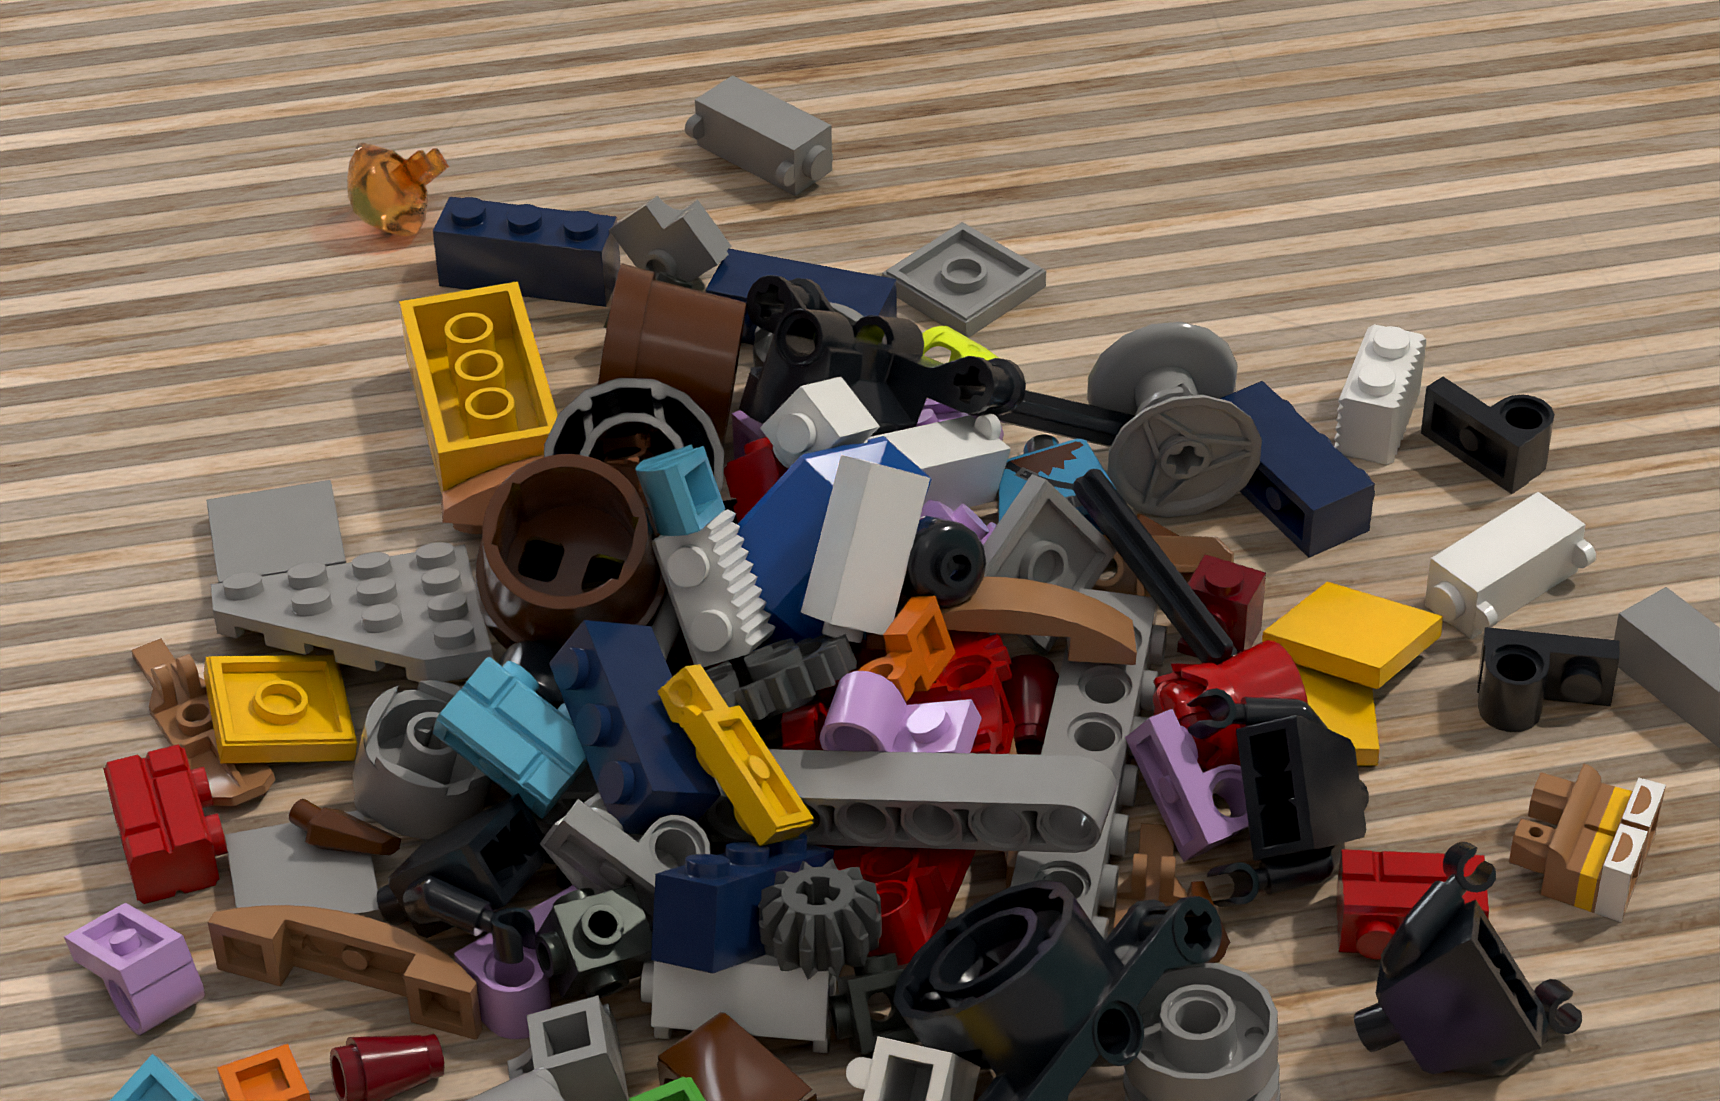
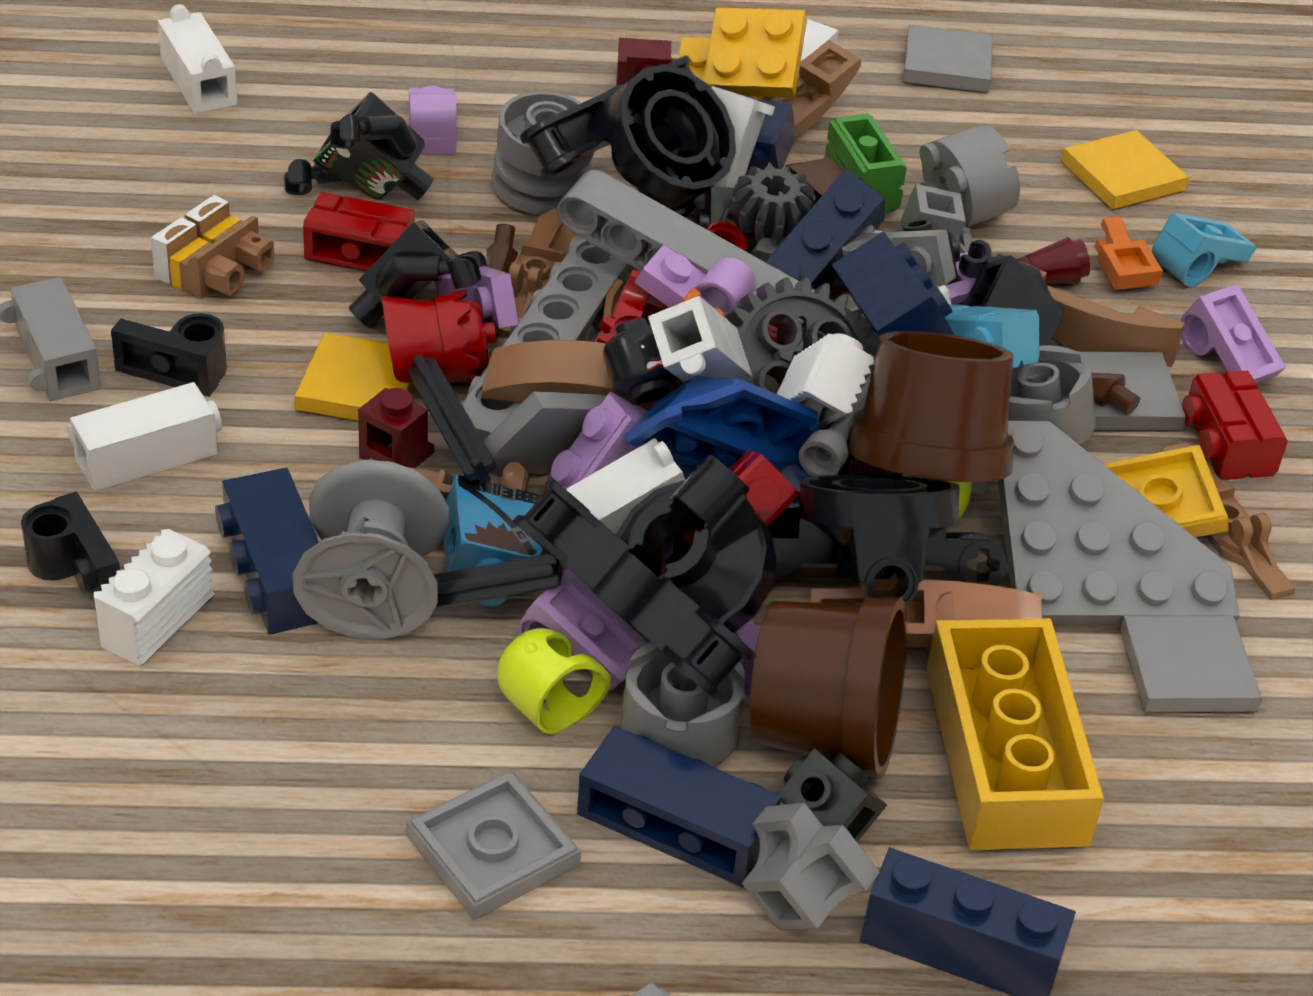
camera: 175 degrees left, 0 degrees up
(680, 491) = (852, 386): medium azure slope -> none
(736, 757) = (821, 258): yellow hinge -> none
(818, 419) = (724, 429): white brick -> none
(1354, 634) = (300, 400): yellow tile -> none

